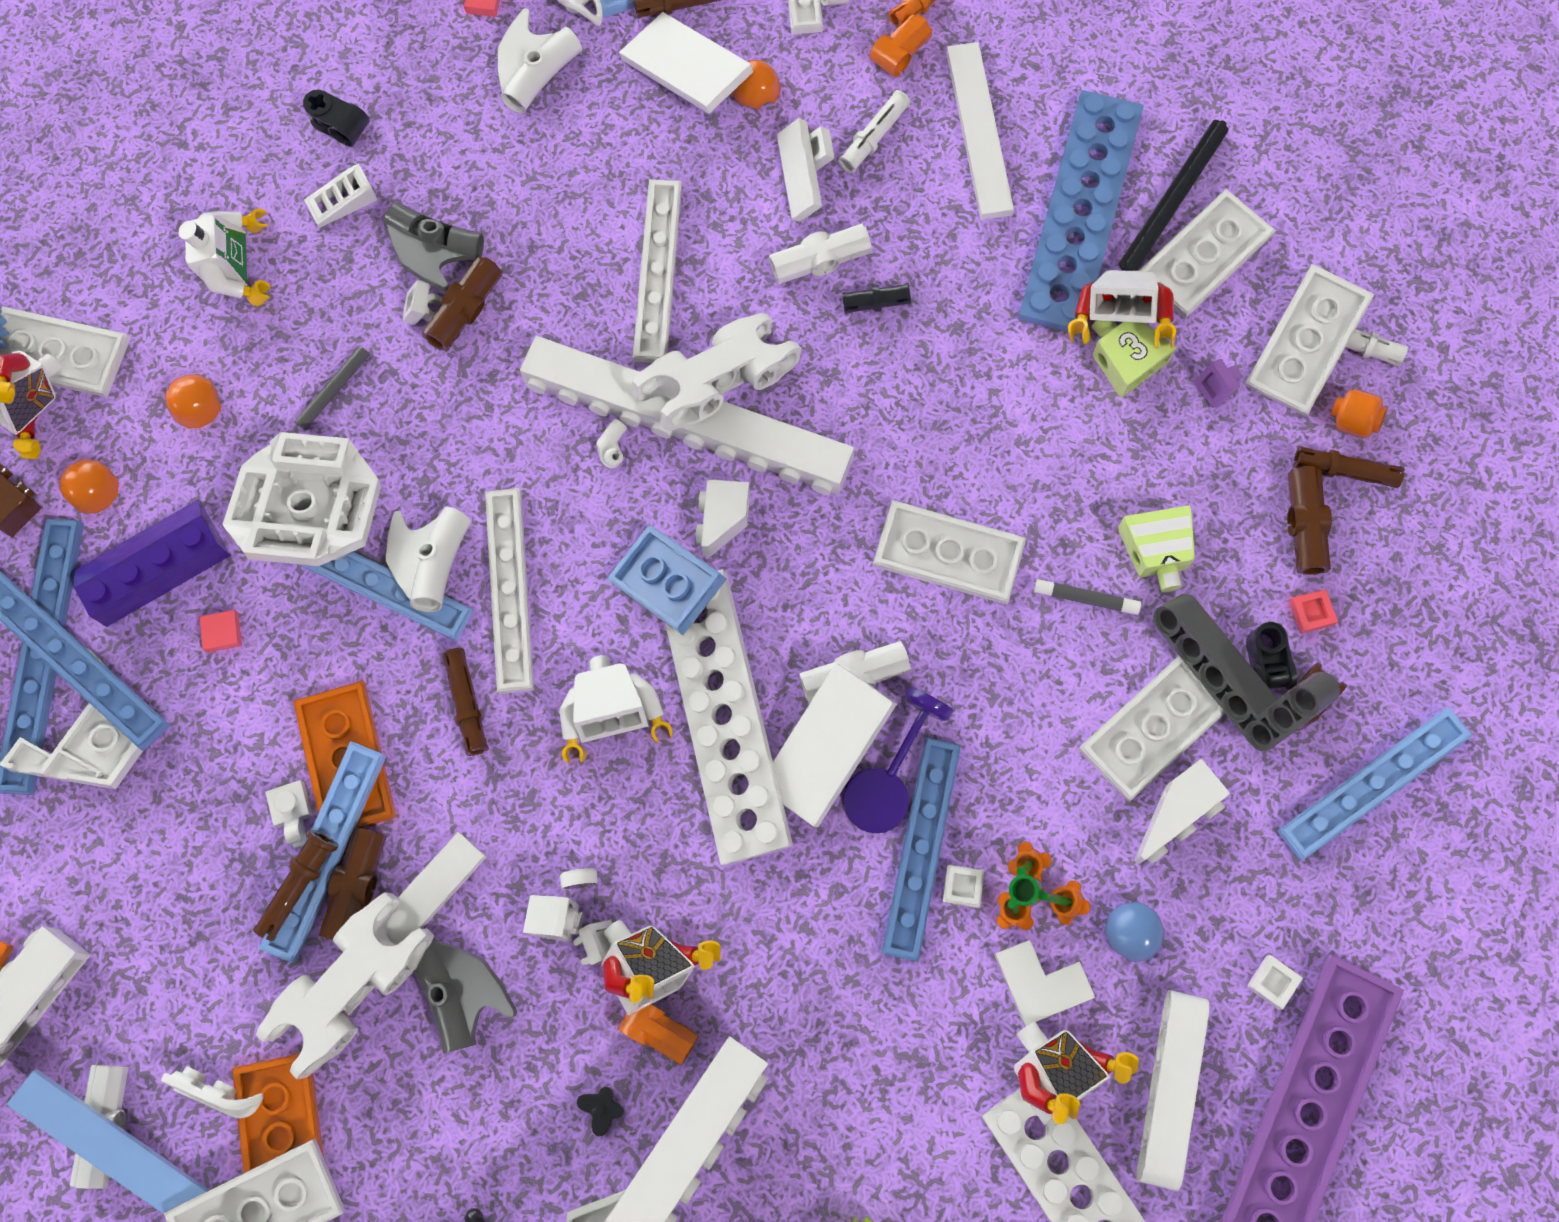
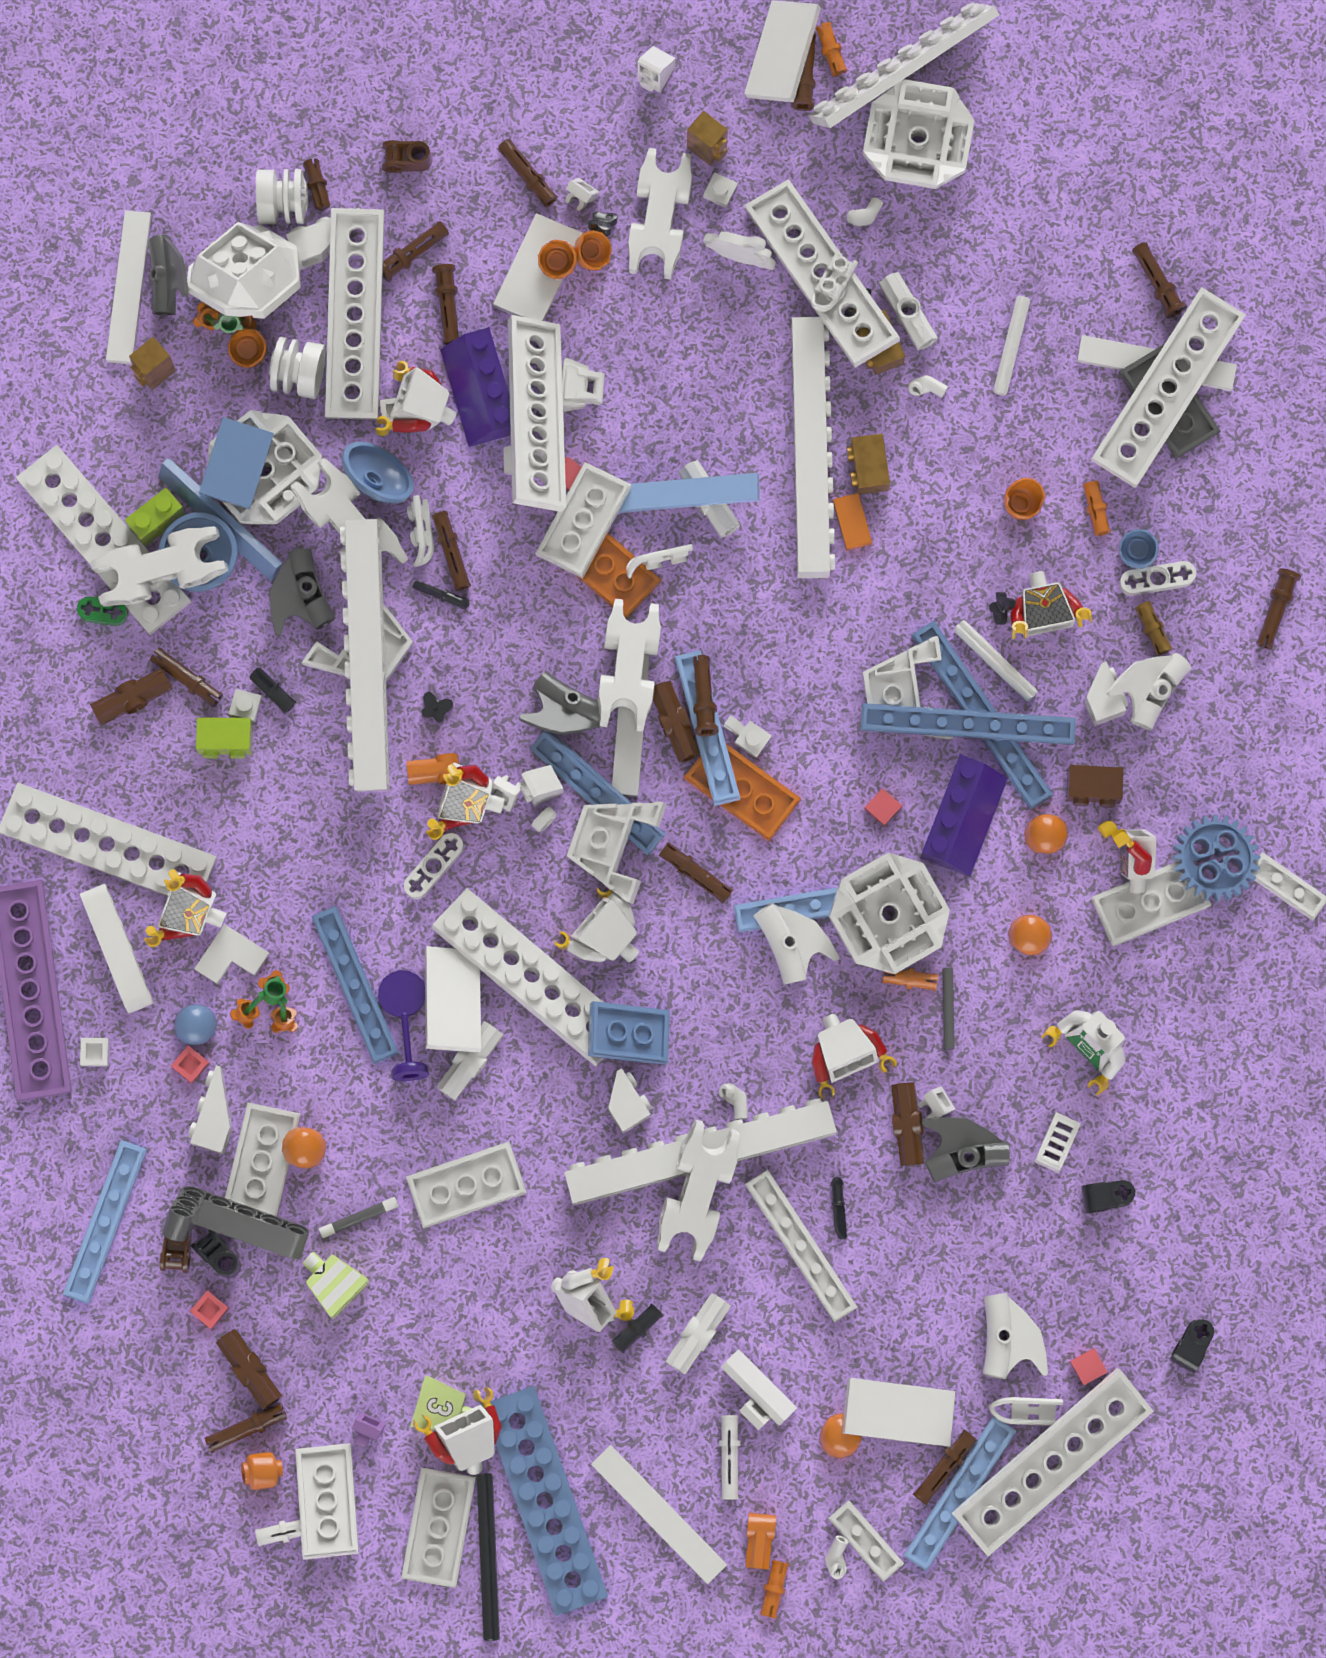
camera: 140 degrees right, 5 degrees up
(332, 428) = (912, 979): none -> orange pin
(464, 410) = (845, 1050): none -> white torso
(497, 870) = (591, 785): none -> medium blue tile
(509, 591) = (726, 961): white tile -> none
(534, 806) = (602, 840): none -> white wing
(590, 281) = (839, 1209): none -> black piece
(769, 922) = (451, 855): none -> white beam
(907, 345) = (586, 1298): none -> white torso
(963, 886) = (314, 979): white tile -> none
(1100, 705) = (303, 1147): none -> orange hair
(1169, 890) = (190, 1064): none -> coral tile

